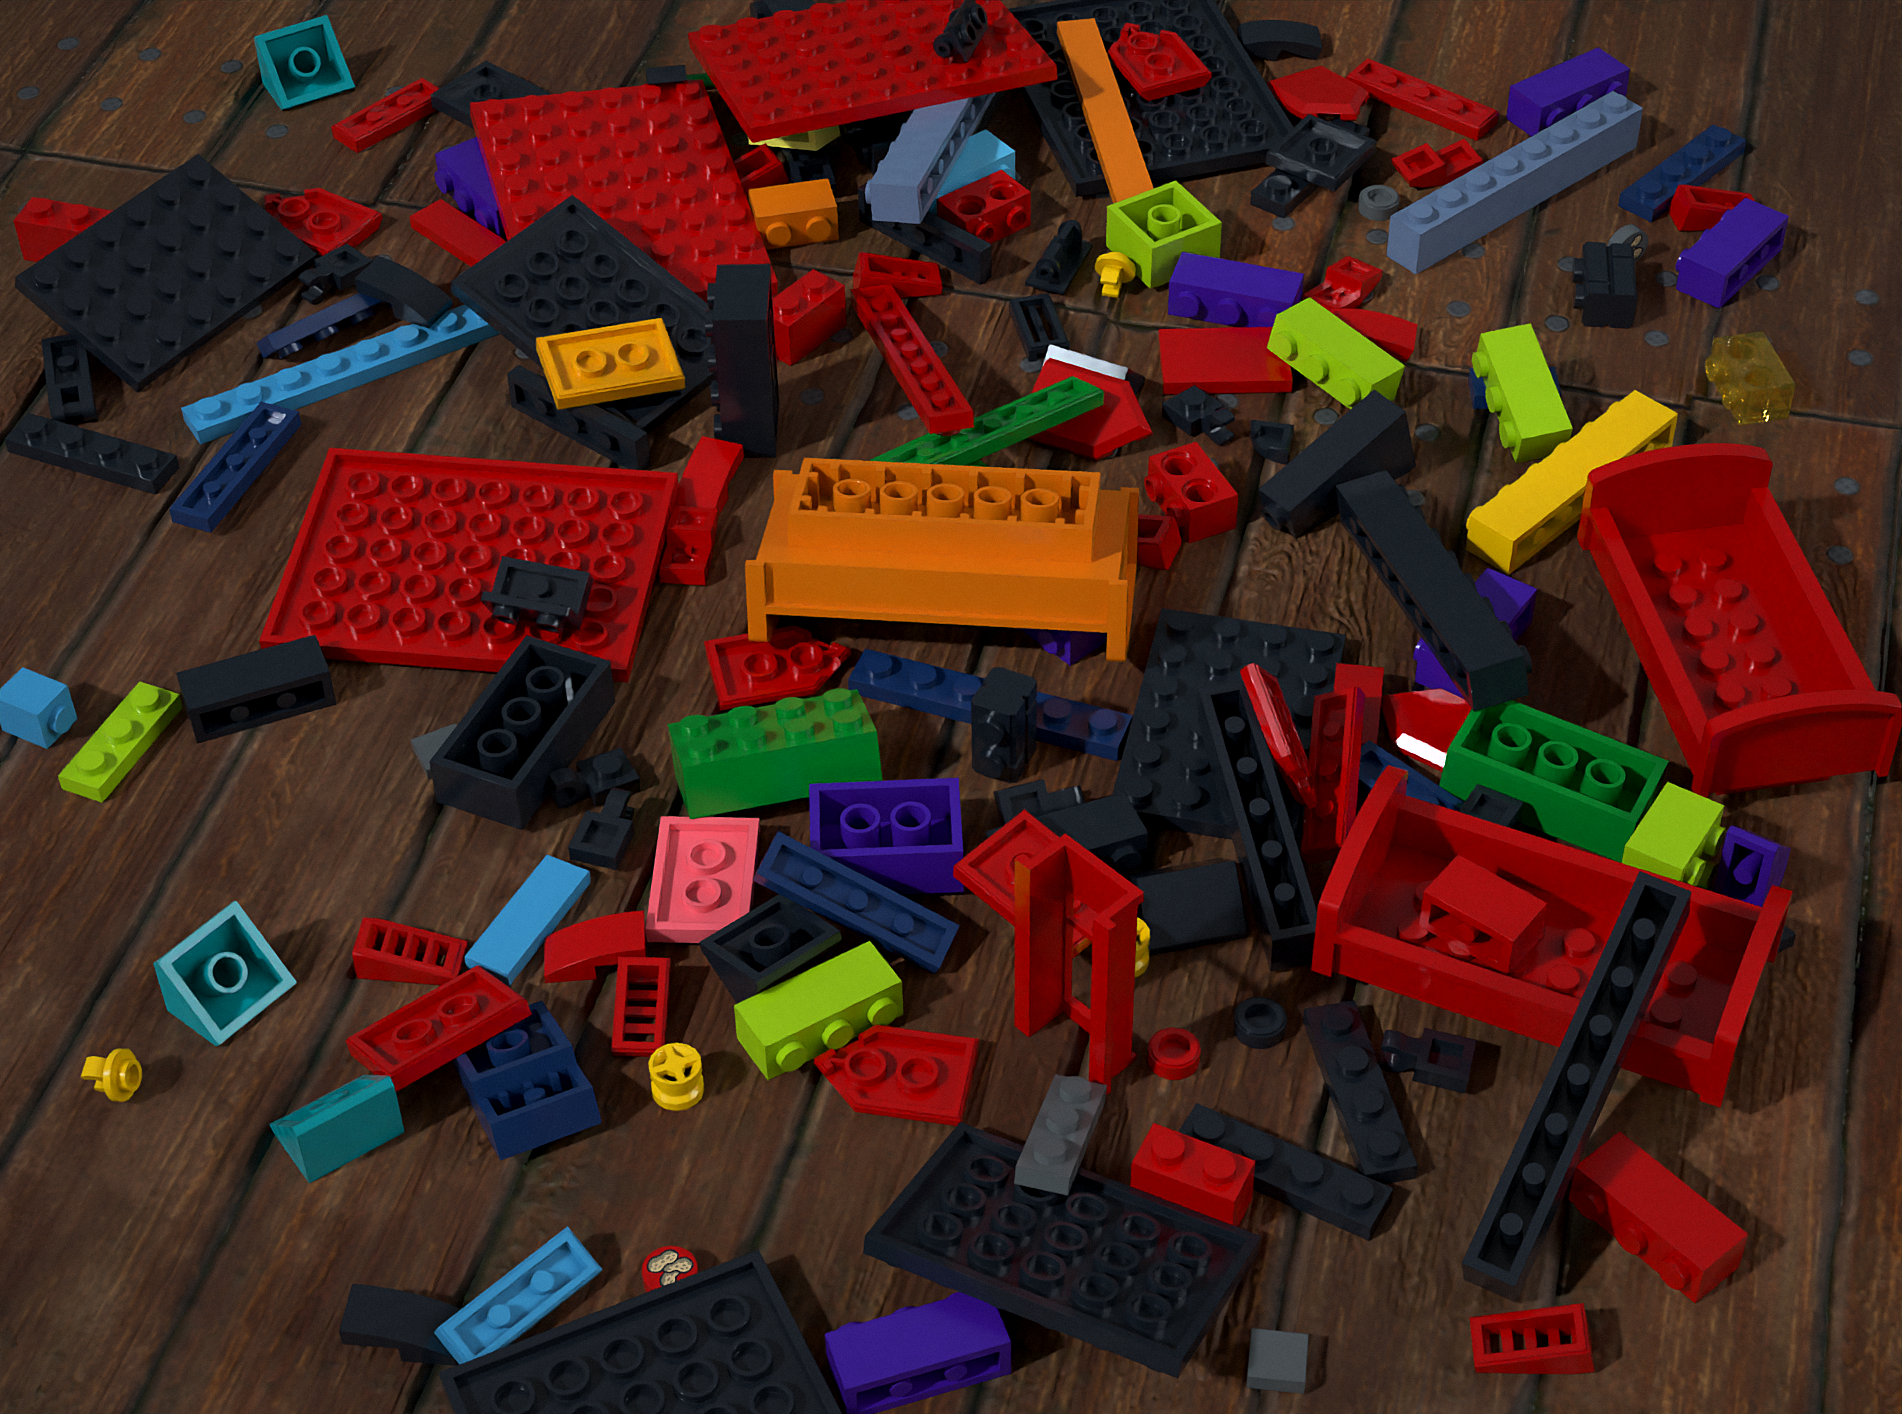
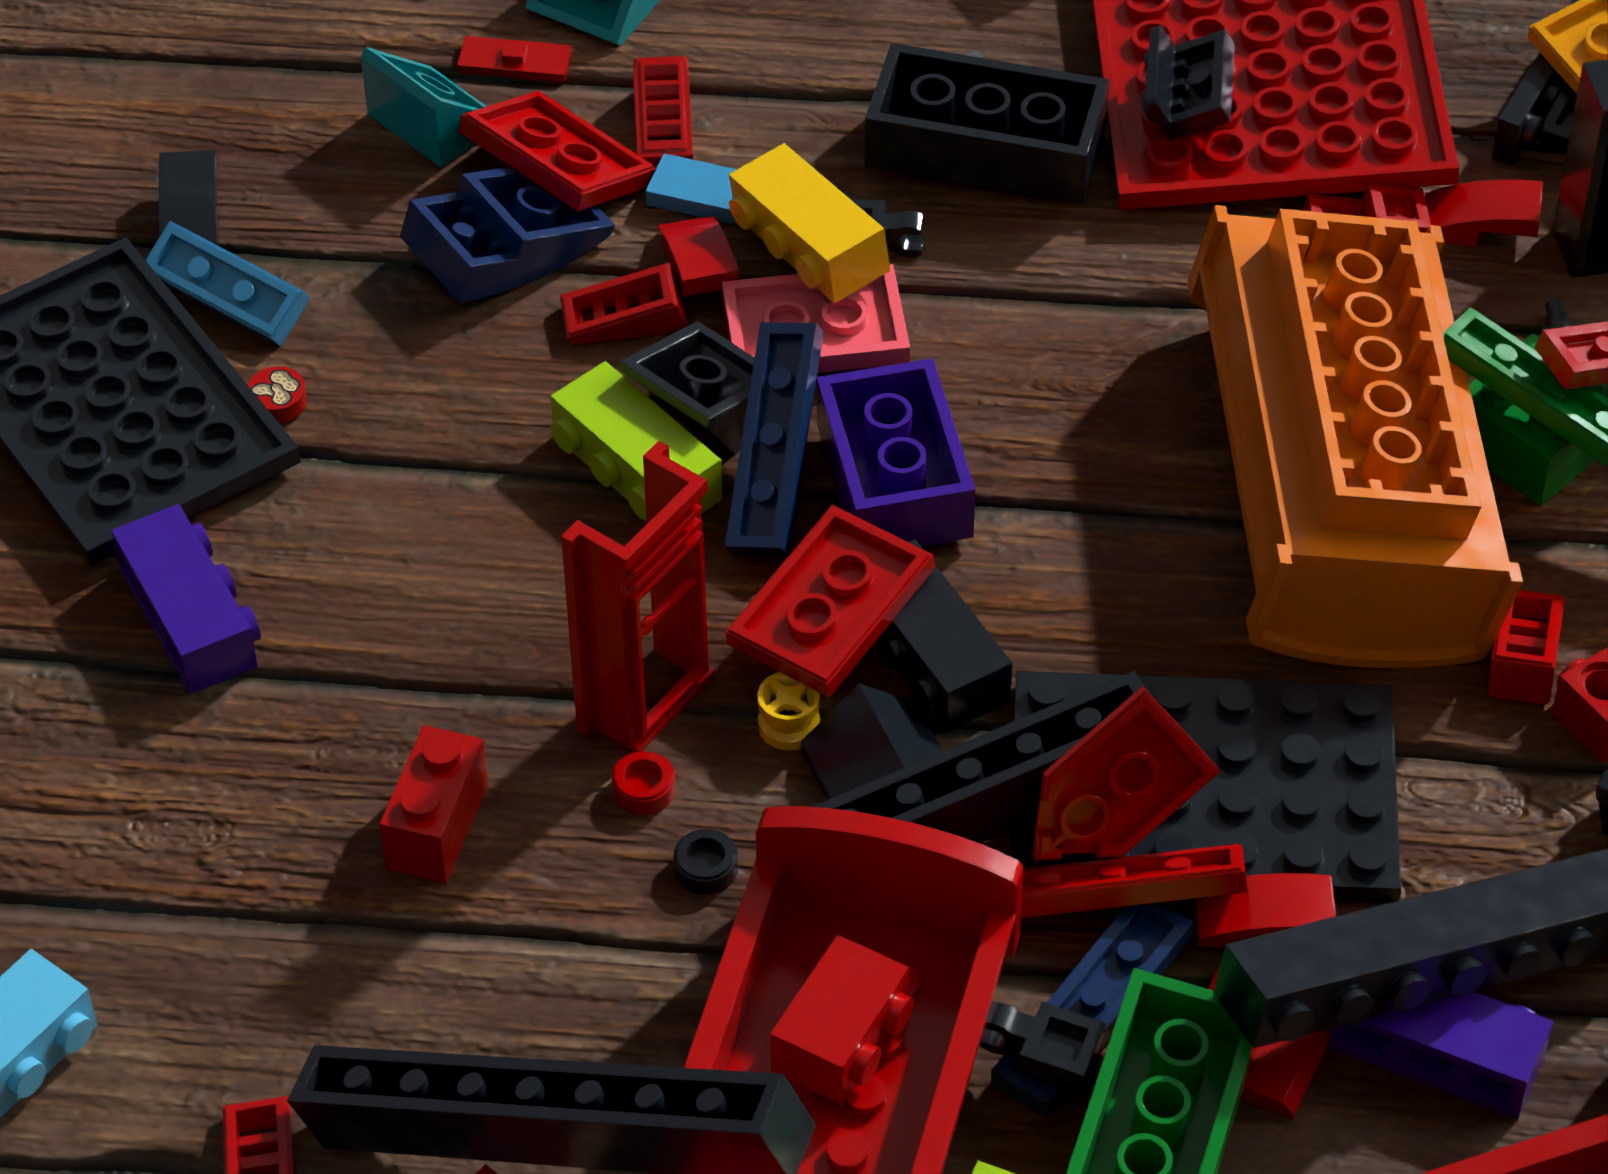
camera: 80 degrees right, 5 degrees up
(284, 1060) = (515, 59): none -> red piece
(594, 779) = (956, 216): black plate -> none
(615, 849) = (808, 223): none -> yellow brick
(684, 1065) = (527, 349): yellow wheel -> none
(772, 670) = (1164, 327): red tile -> none
(773, 752) = (1002, 337): green brick -> none
(904, 1073) = (535, 531): red tile -> none
(950, 696) = (1174, 539): dark blue plate -> none
(1004, 724) = (1094, 532): black brick -> none
(1034, 799) = (992, 593): black plate -> none
(1060, 1134) = (483, 677): dark grey plate -> none
(1087, 1263) = (310, 690): black plate -> none
(1277, 1360) = (215, 919): dark grey tile -> none
(1296, 1174) = (481, 903): black plate -> none
(1359, 1093) = (606, 969): black plate -> none
(1437, 1058) = (665, 1032): black plate -> none

